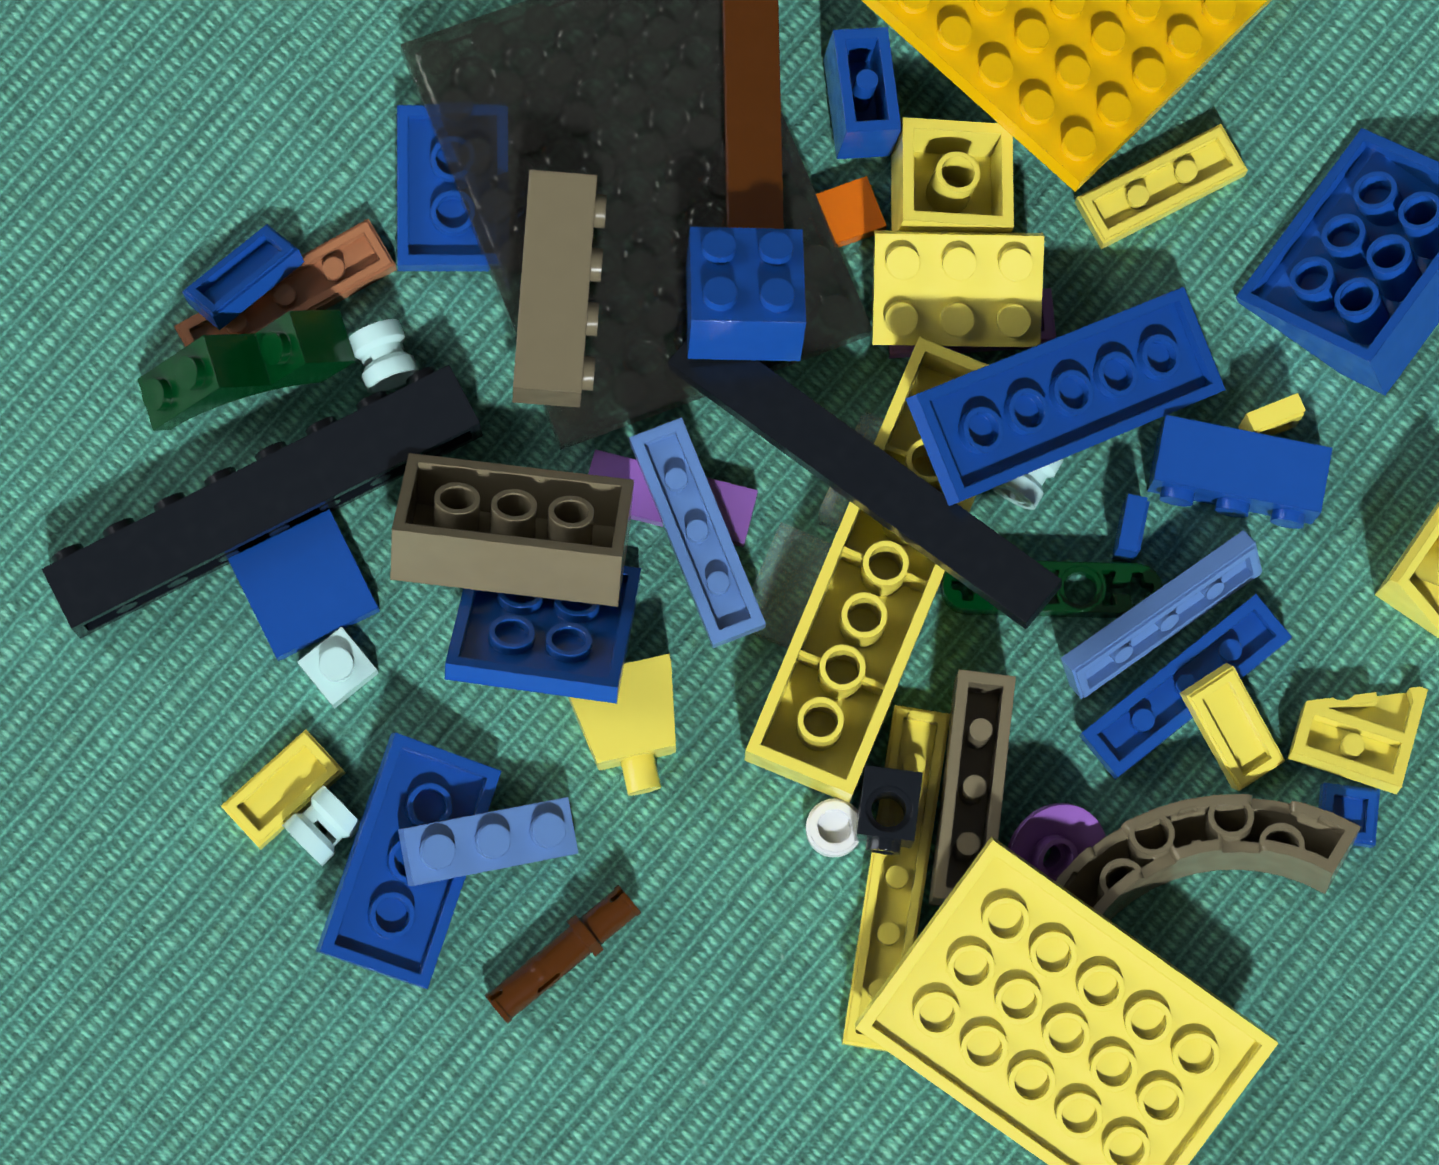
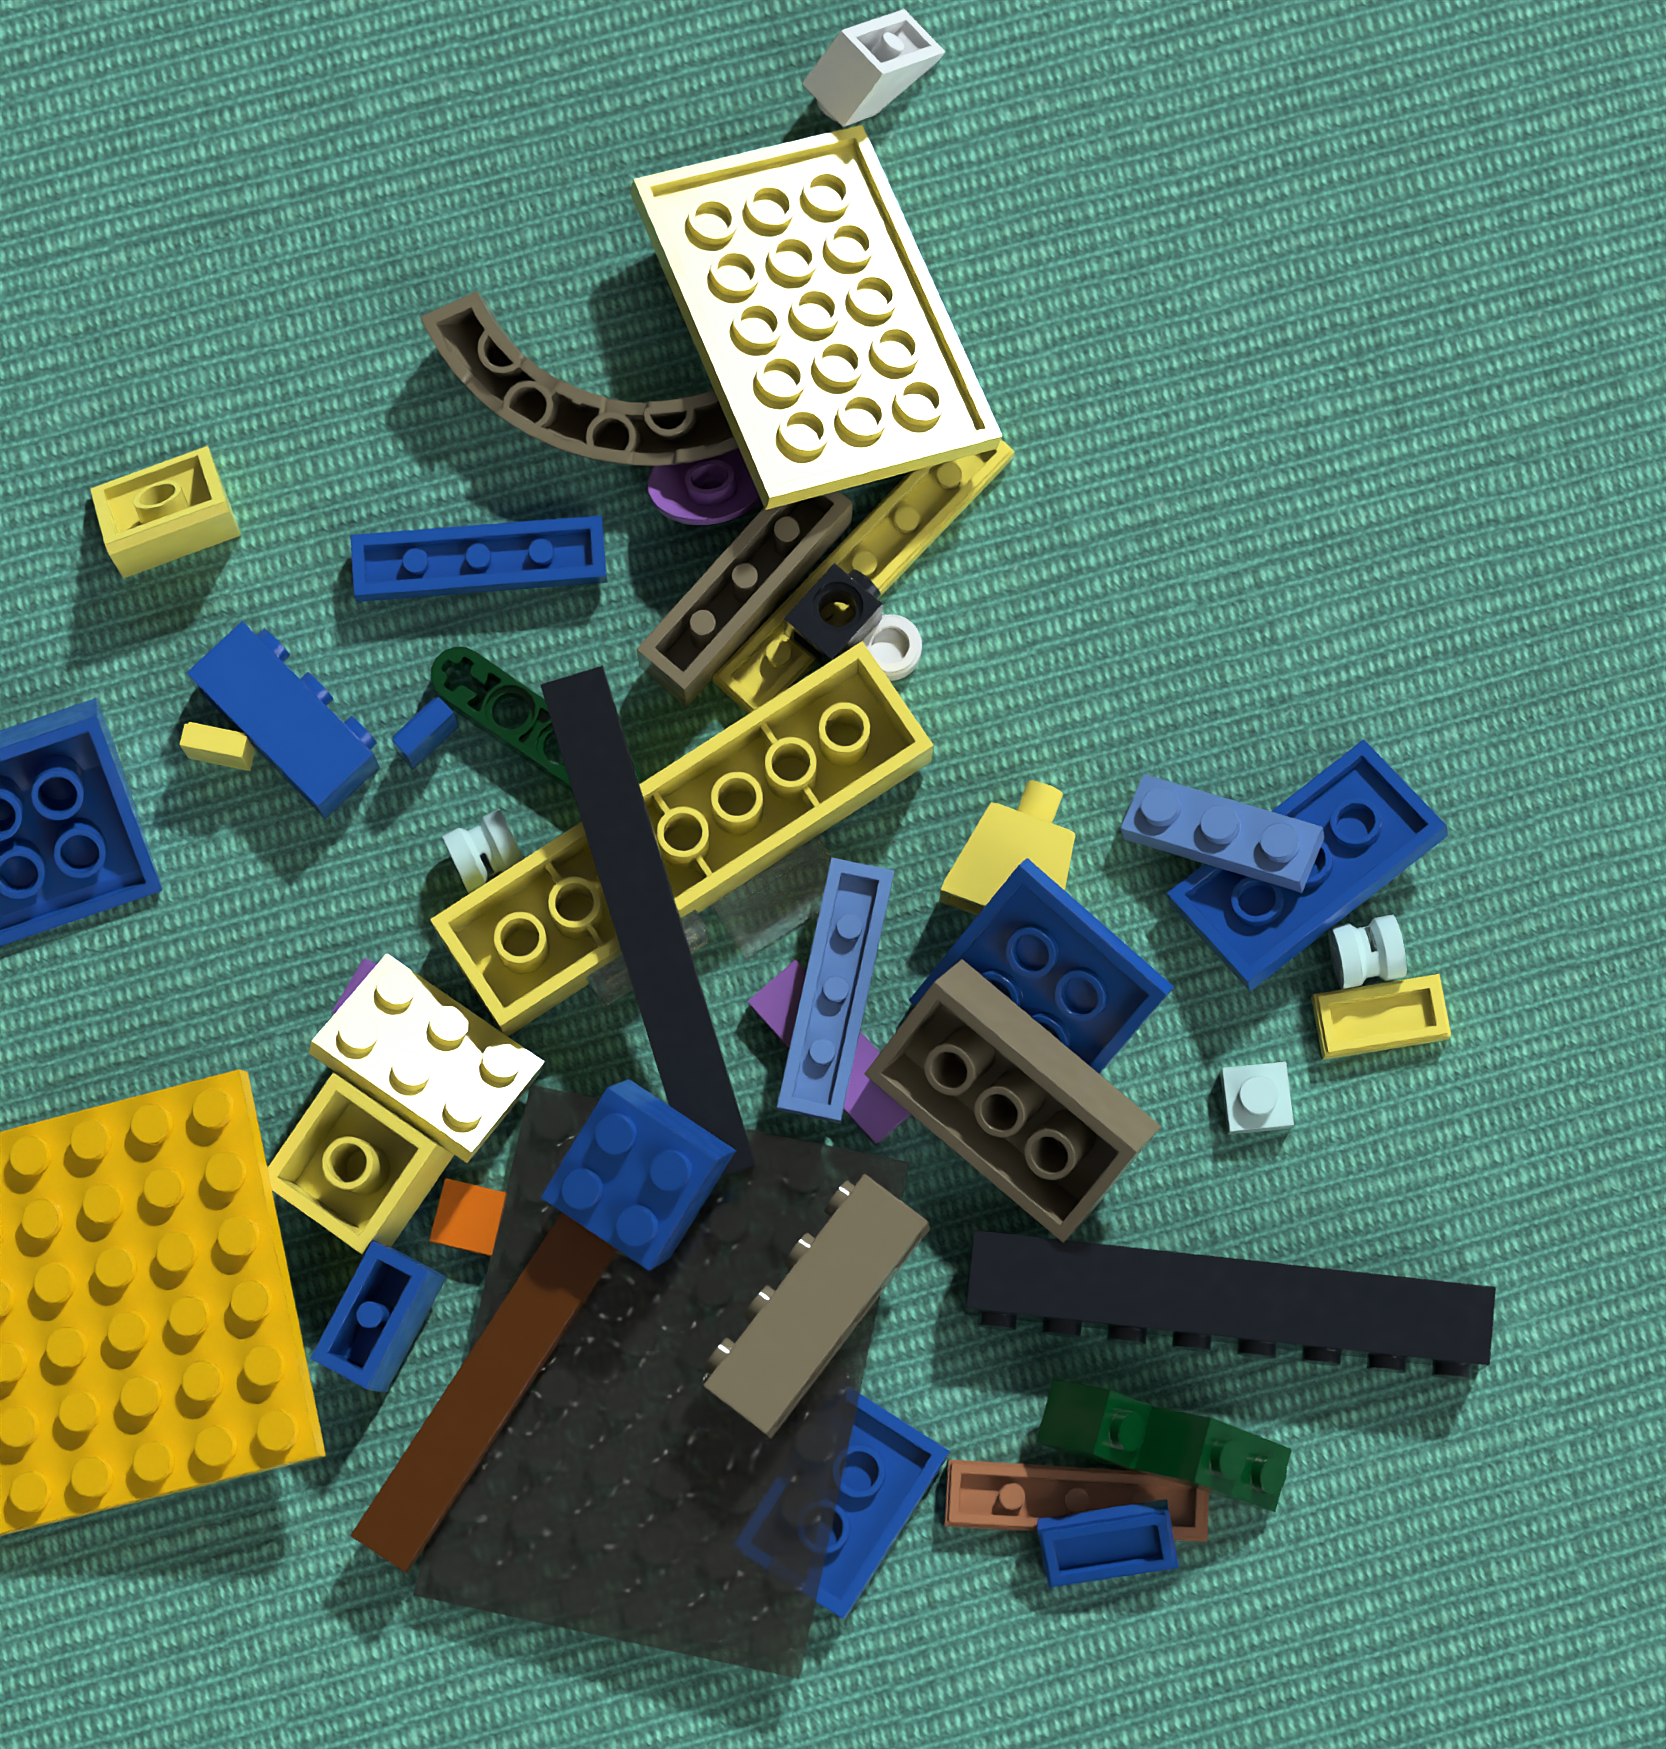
camera: 145 degrees left, 0 degrees up
(303, 585) = (1240, 1196): blue tile -> none
(383, 355) = (1021, 1369): light aqua wheel -> none
(563, 953) = (1219, 692): reddish brown pin -> none
(1064, 395) = (402, 875): blue plate -> none
(1161, 186) = (148, 1043): light yellow tile -> none
(1162, 615) = (453, 633): medium blue tile -> none
(1232, 726) = (464, 492): light yellow tile -> none
(1356, 805) = (411, 357): blue tile -> none
(1360, 736) = (351, 411): light yellow wing -> none

